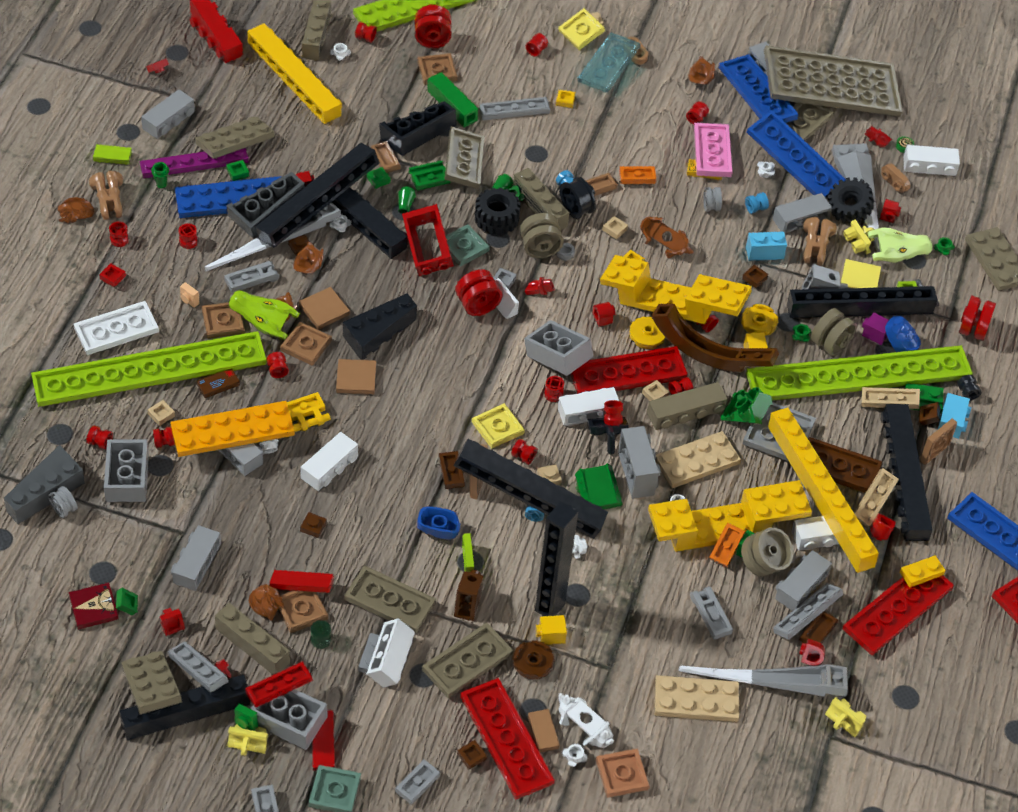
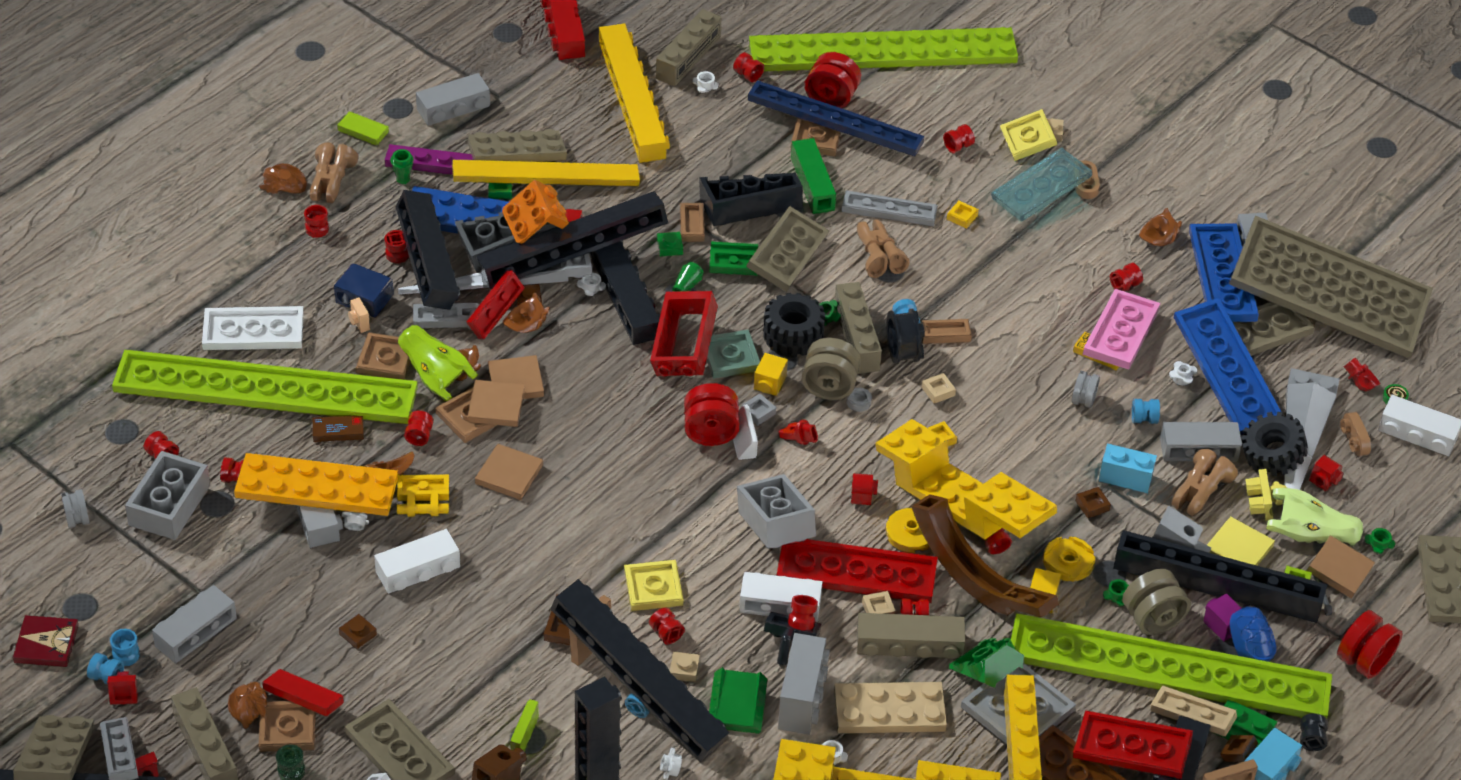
camera: 25 degrees right, 5 degrees down
(32, 492) = (41, 488): dark grey wedge -> none
(112, 275) = (283, 266): red plate -> none
(127, 601) = (84, 647): green plate -> none
(150, 612) = (101, 667): none -> dark azure wheel
(156, 591) = (125, 646): none -> dark azure wheel
(157, 66) = (472, 41): red plate -> none
(161, 412) = (249, 441): tan plate -> none
(181, 271) = (366, 285): none -> dark blue piece
(216, 232) = (427, 250): none -> black brick
(265, 150) = (545, 172): none -> yellow tile
(278, 395) = (400, 464): none -> dark orange hat
(284, 182) = (532, 210): none -> orange bracket
(284, 258) = (495, 304): none -> red tile
(323, 330) = (496, 403): none -> medium nougat tile
(379, 324) = (570, 417): black wedge -> none
(438, 522) = (508, 677): blue piece -> none
(447, 53) = (836, 118): none -> dark blue plate
(499, 251) = (770, 374): none -> yellow brick
(503, 181) = (822, 292): green cone -> none
(526, 139) = (877, 244): none -> medium nougat piece
(554, 388) = (747, 559): red wheel -> none
(637, 175) = (1004, 332): orange plate -> none
(655, 228) = (987, 402): dark orange piece -> none
(867, 433) = (1133, 744): none -> red tile
(930, 271) = (1340, 566): none -> medium nougat tile

